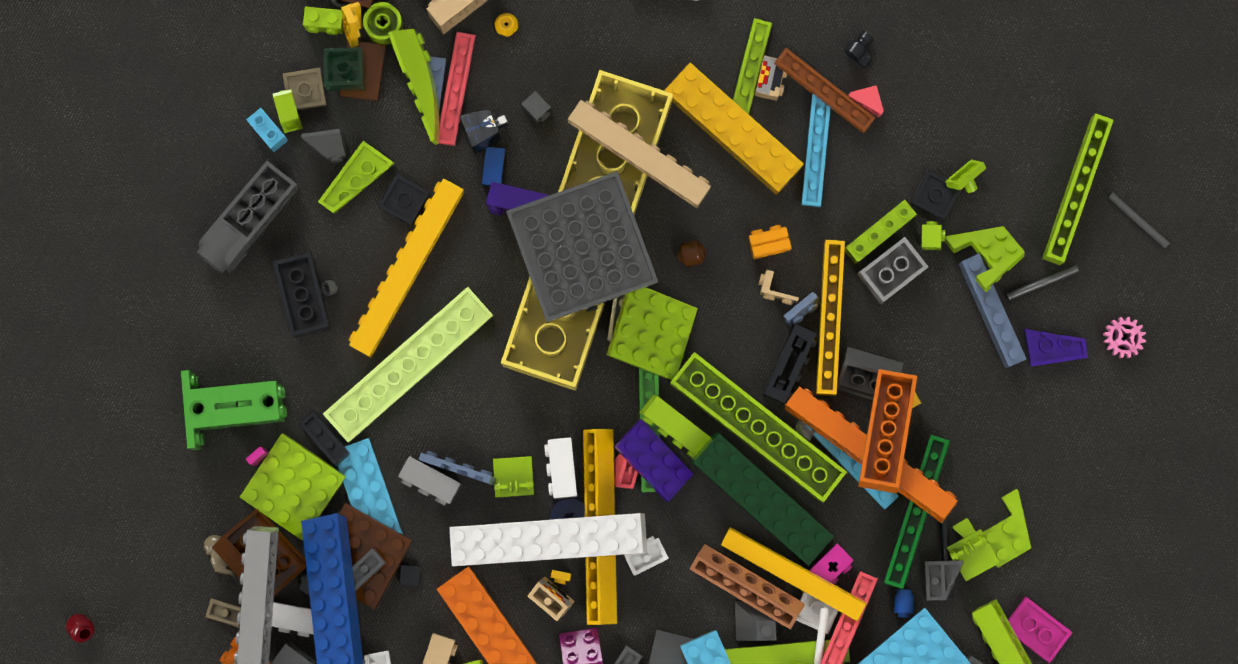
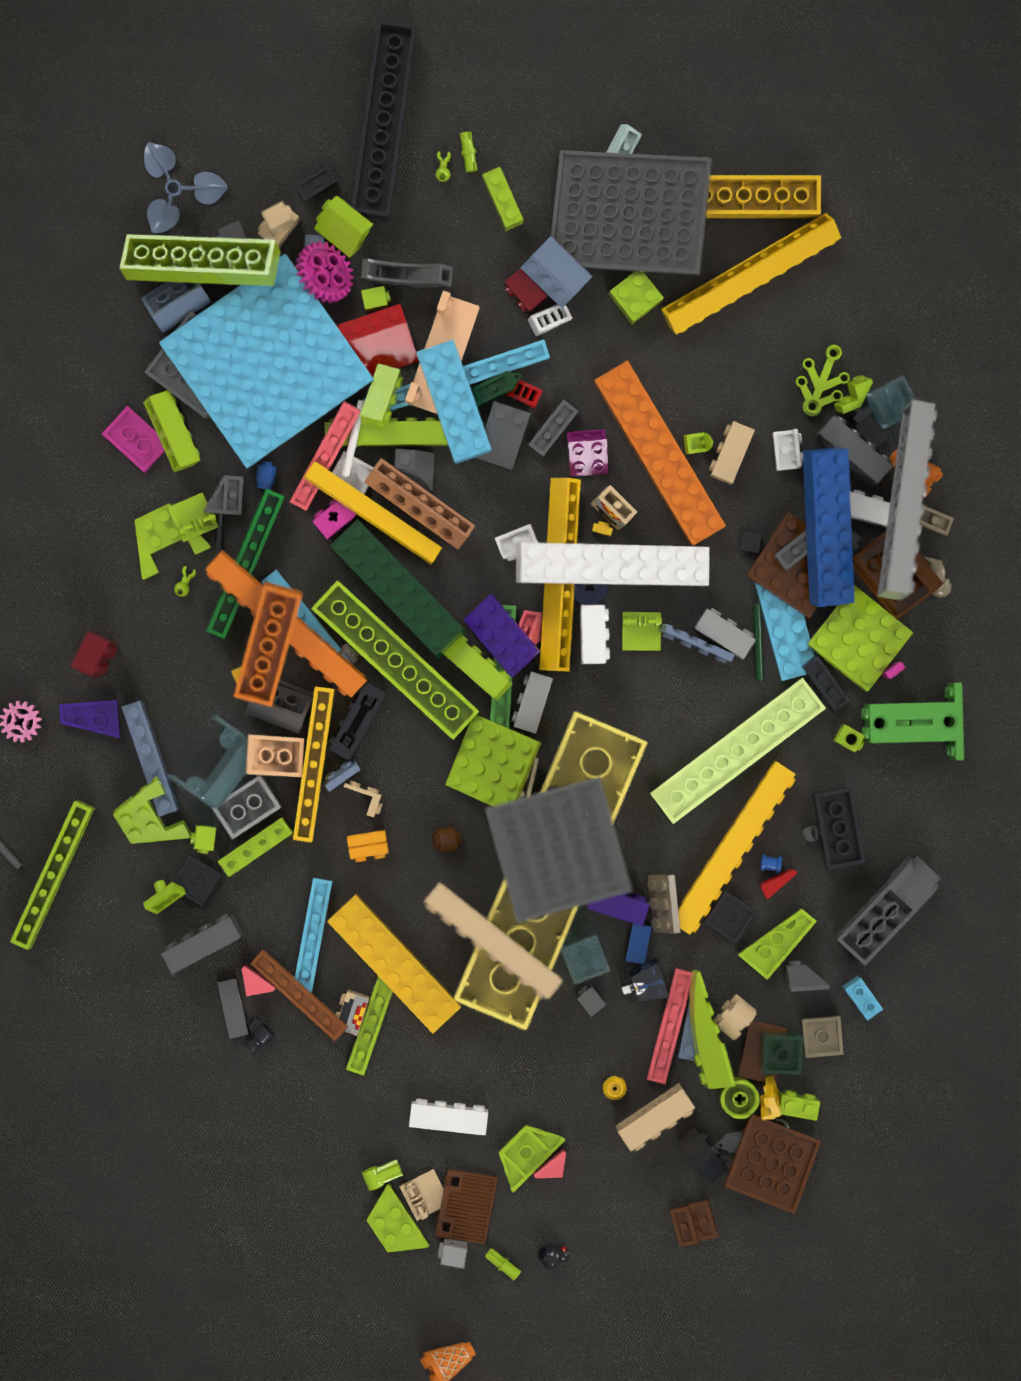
camera: 175 degrees left, 5 degrees up
(287, 111) = (841, 1015): lime slope -> none
(304, 389) = (845, 730): none -> lime brick
(361, 236) = (773, 884): none -> red slope
(367, 255) = (770, 863): none -> blue bush
(392, 101) = (735, 1016): none -> tan brick
(395, 473) = (758, 642): none -> dark green bar
(471, 206) = (663, 903): none -> dark tan plate
(545, 147) = (585, 958): none -> clear light blue brick
(617, 396) = (532, 702): none -> light grey brick
(870, 321) = (274, 756): none -> light nougat slope
(888, 74) = (233, 1008): none -> dark grey tile
(915, 302) = (226, 773): none -> clear light blue windscreen
(924, 132) = (199, 945): none -> dark grey brick
(976, 486) = (183, 585): none -> lime arm
(1041, 283) = (97, 783): dark grey bar -> none
(1058, 408) = (94, 654): none -> dark red brick

